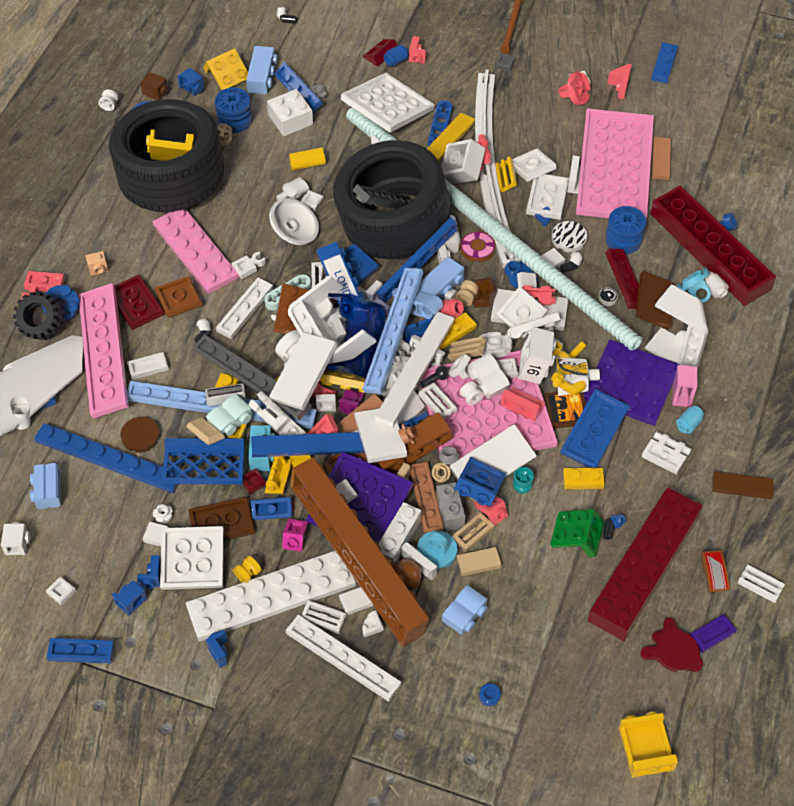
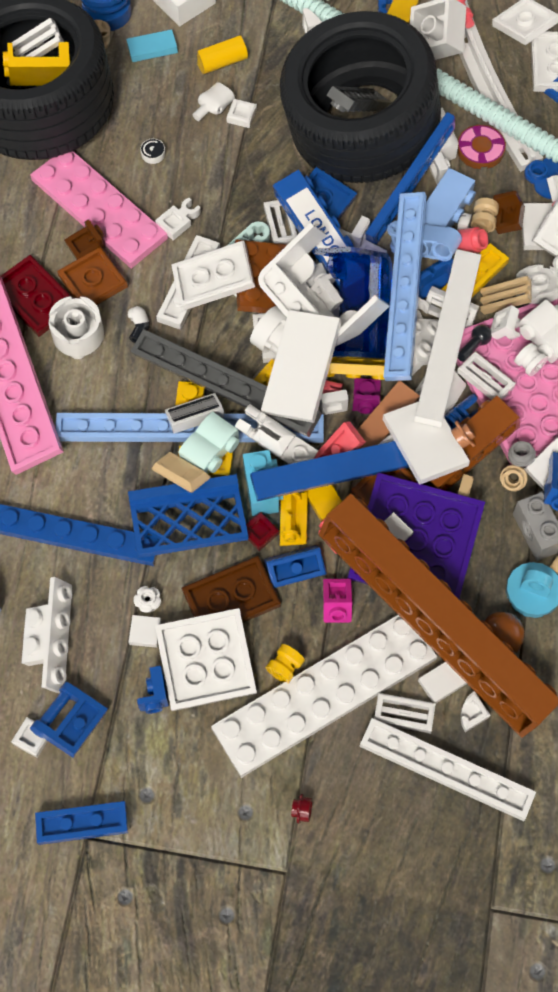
camera: 10 degrees left, 10 degrees up
(88, 526) = (48, 634): none -> white bracket
(92, 586) = (76, 725): none -> blue plate
(130, 597) = (133, 731): blue brick -> none
(140, 434) = (87, 488): reddish brown tile -> none
(147, 365) = (73, 386): white tile -> none
(158, 326) = (76, 326): none -> white brick
(173, 129) = (36, 37): none -> white tile
(179, 269) = (85, 240): none -> reddish brown bracket
(216, 647) = (273, 790): blue bracket -> none
(235, 667) = (302, 809): none -> dark red plate
(242, 217) = (152, 151): none -> tile
(260, 305) = (213, 275): none -> white tile
(261, 146) = (152, 45): none -> medium azure tile
(294, 221) = (227, 147): white dish -> none
(400, 531) = (482, 573): white brick -> none
(426, 497) = (501, 518): nougat tile -> none
(426, 566) = (503, 603): white tile -> none
(502, 167) = (488, 26): yellow tile -> none

